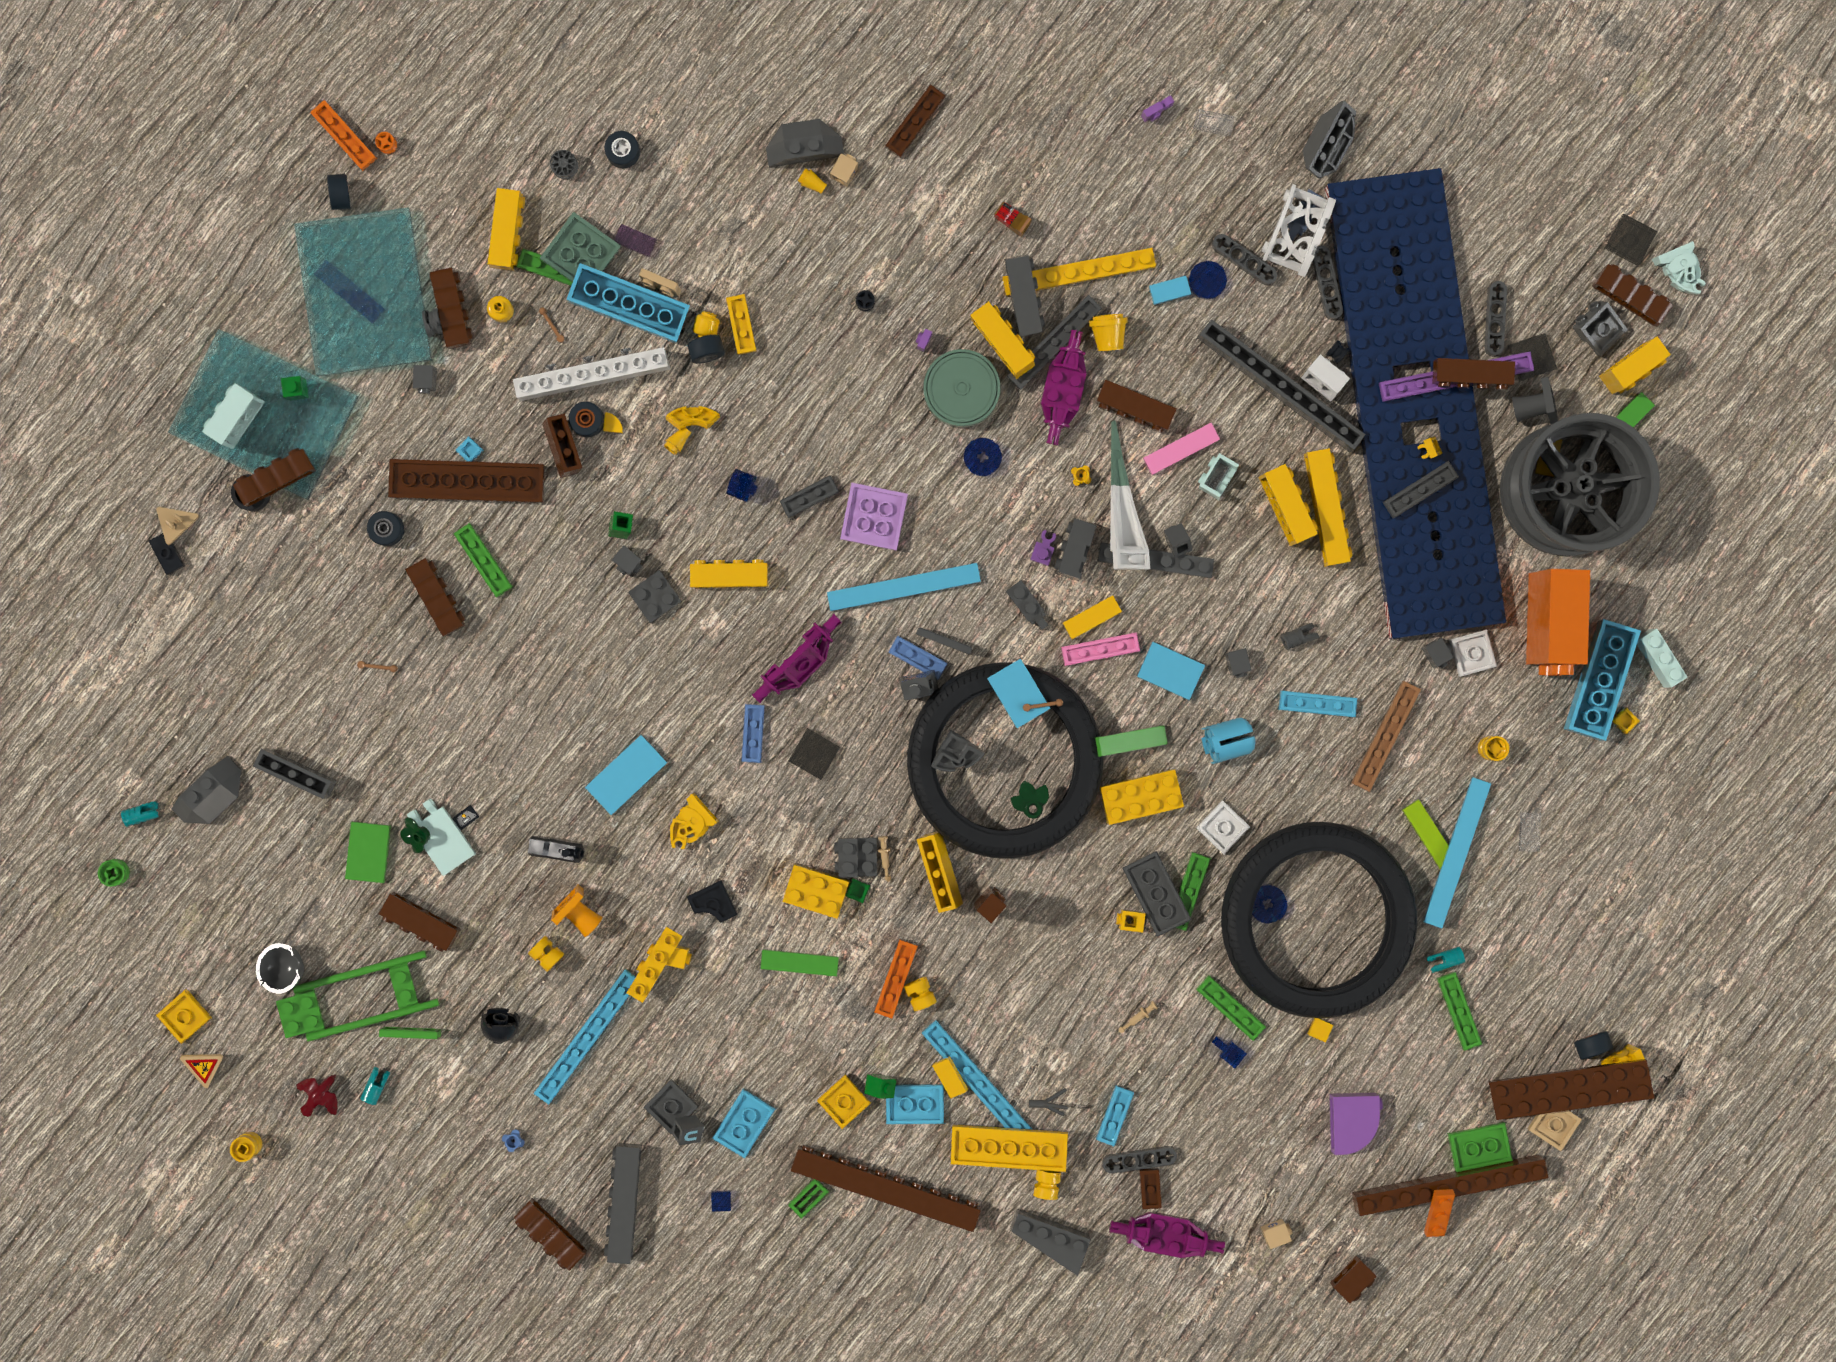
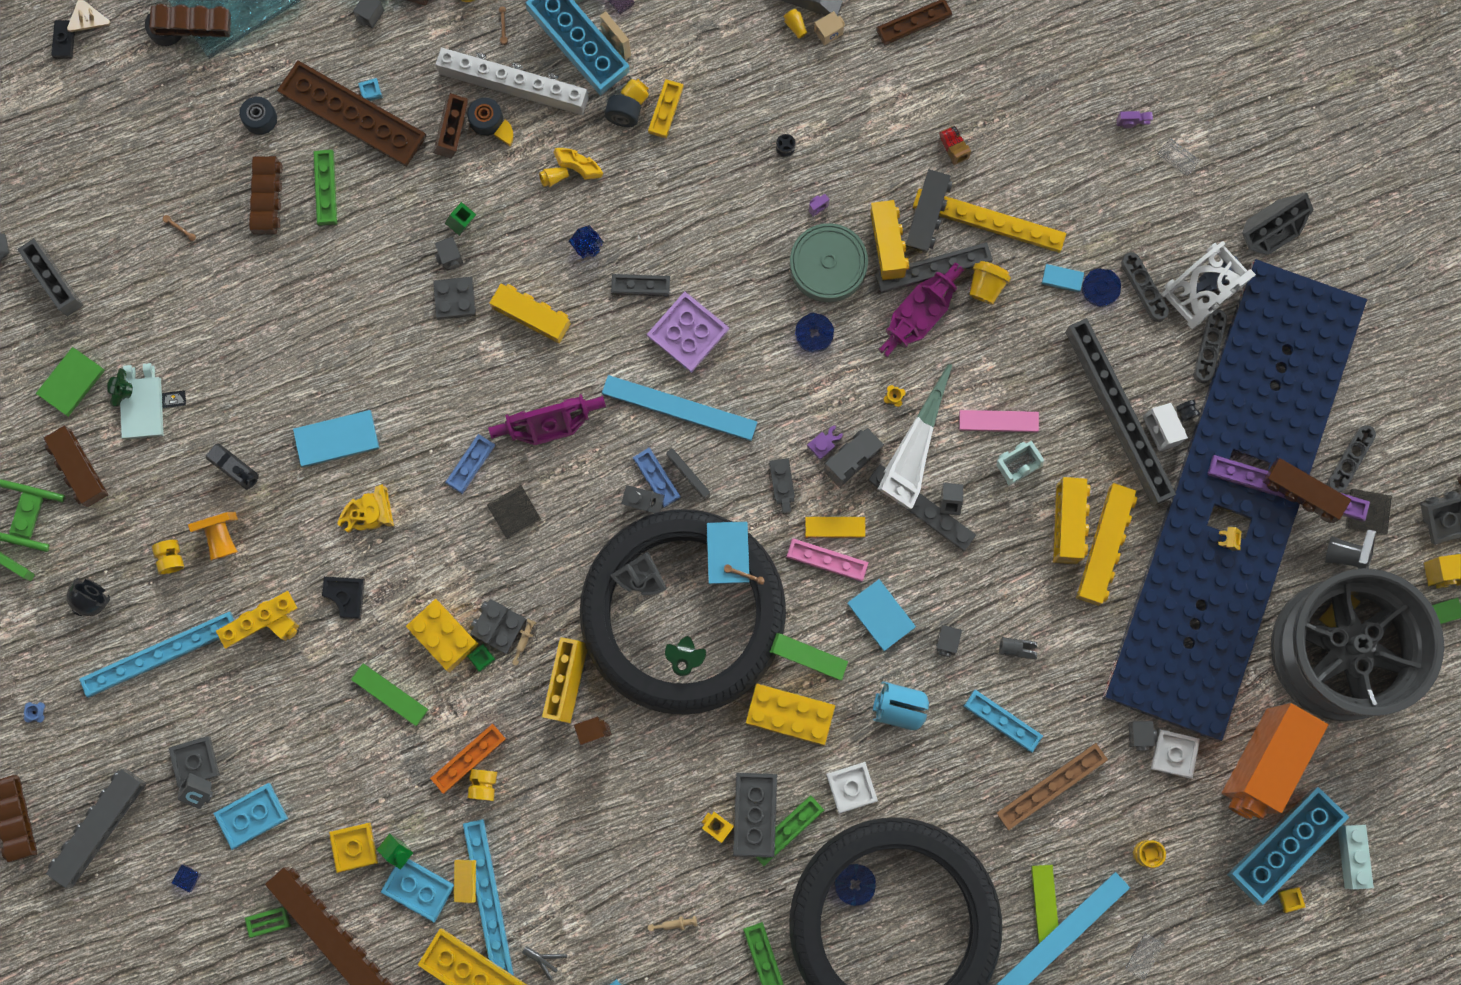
camera: 30 degrees right, 10 degrees down
(1136, 406) = (977, 361): reddish brown brick -> none
(1420, 489) = (1202, 572): dark grey tile -> none

